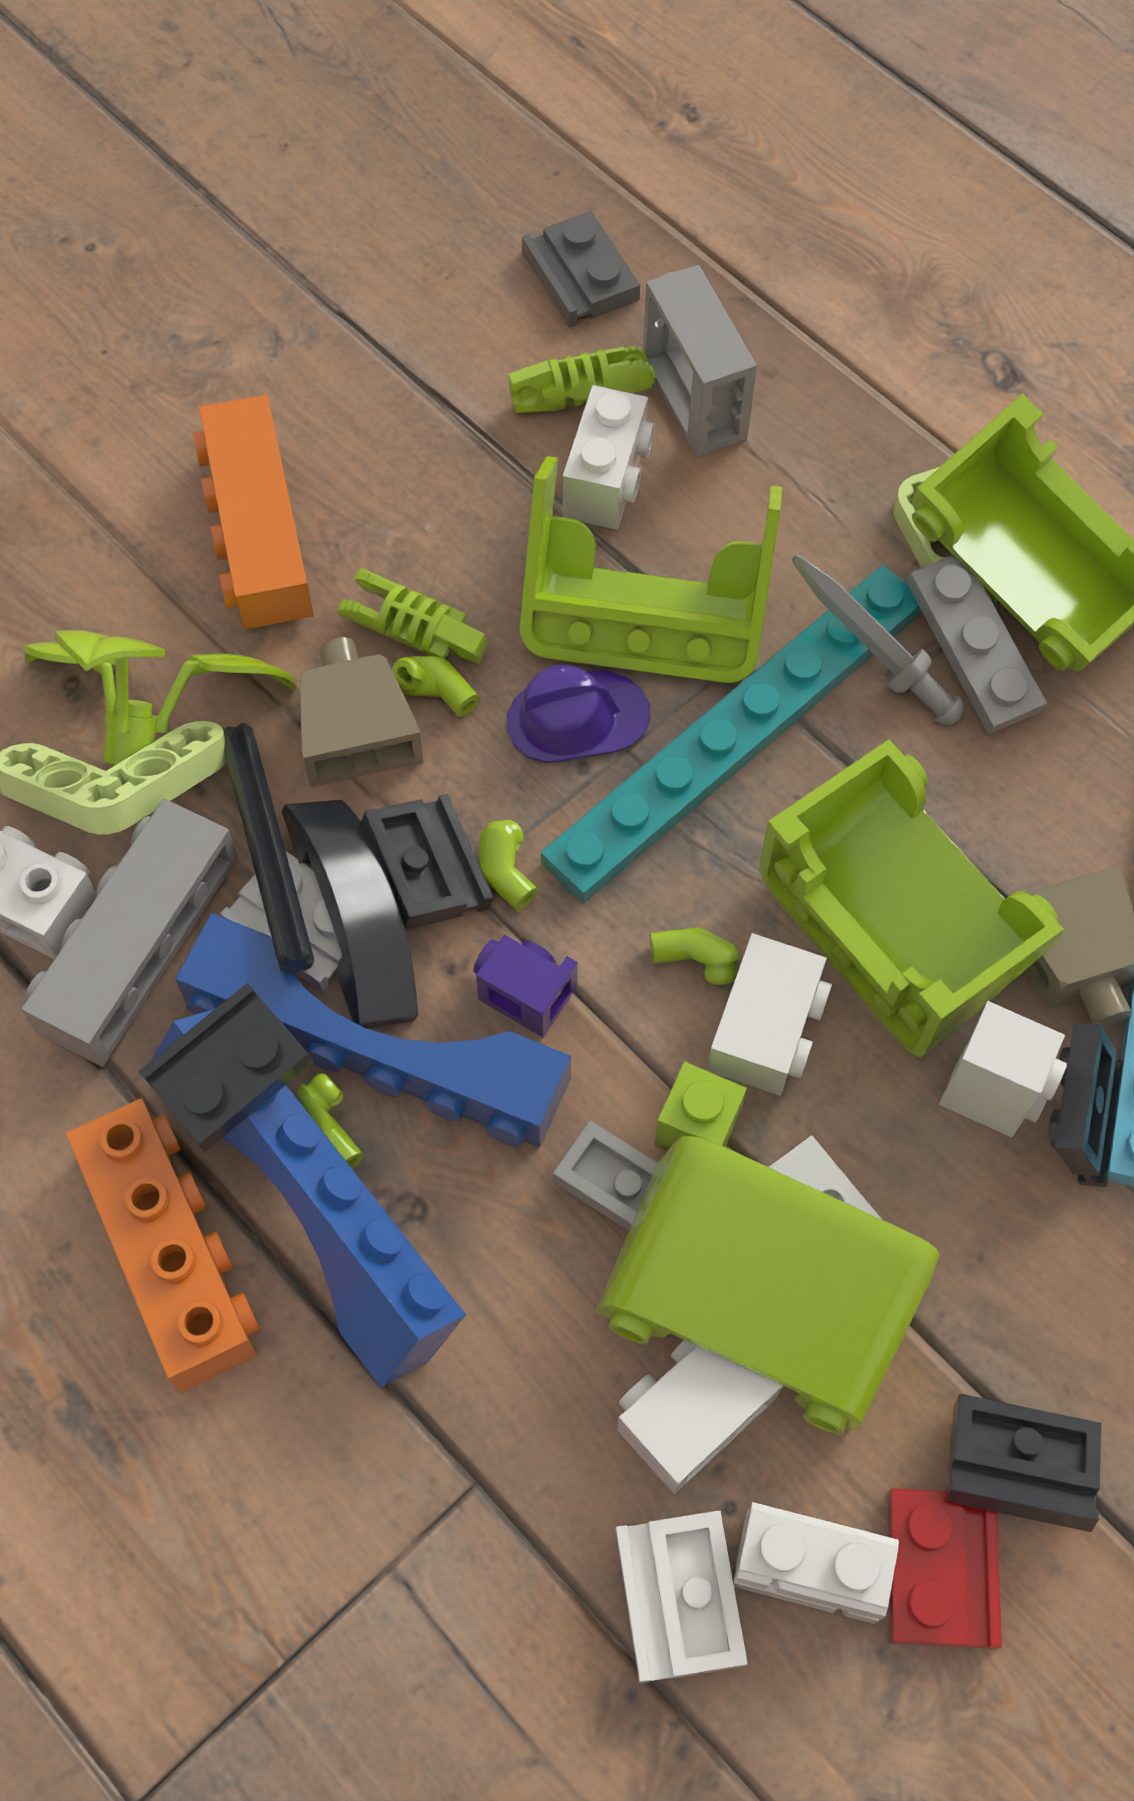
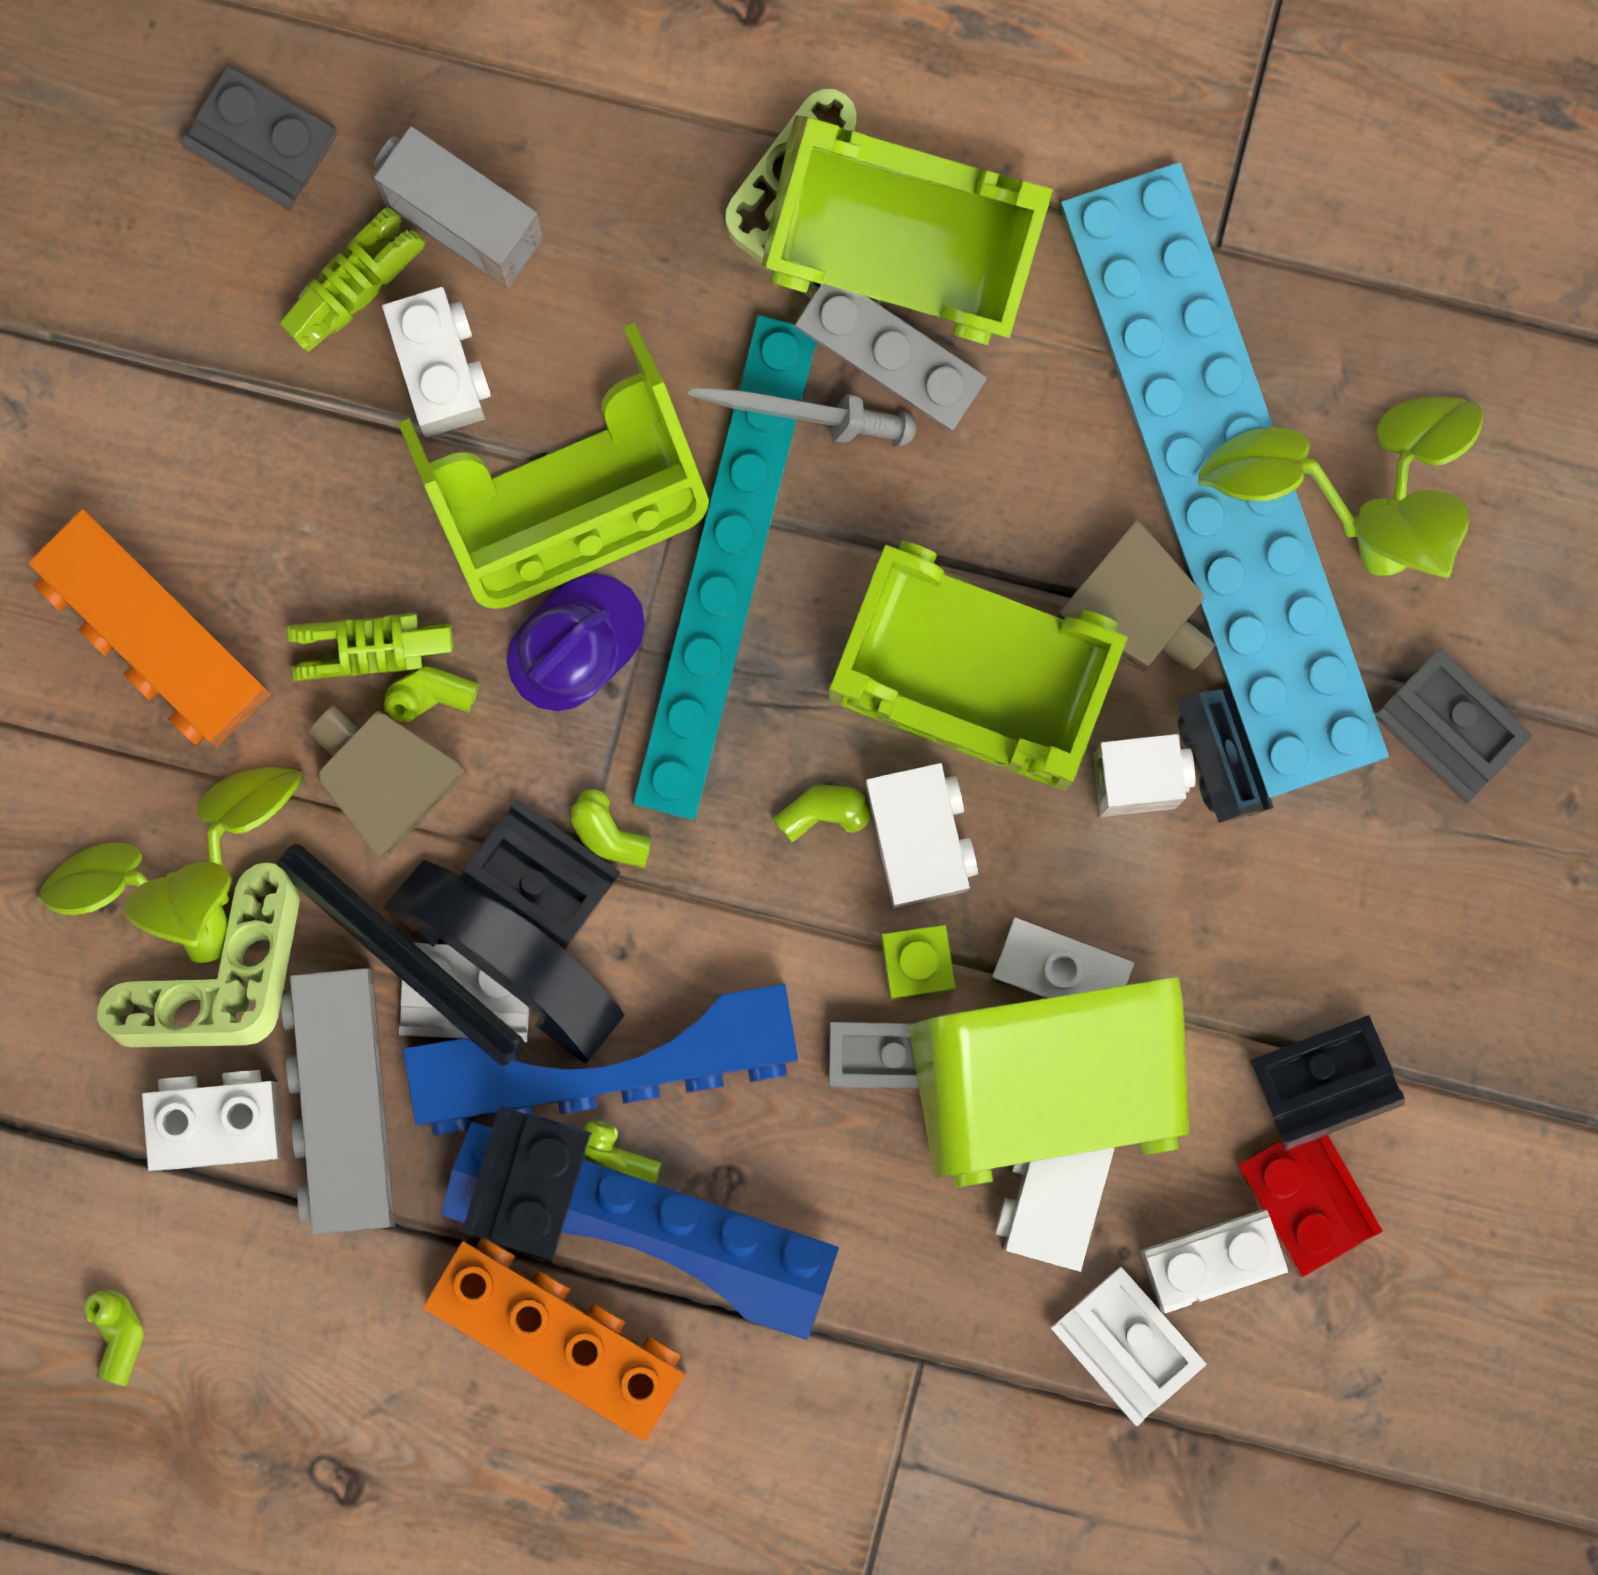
camera: 35 degrees left, 20 degrees up
(524, 982) = (696, 934): dark purple brick -> none

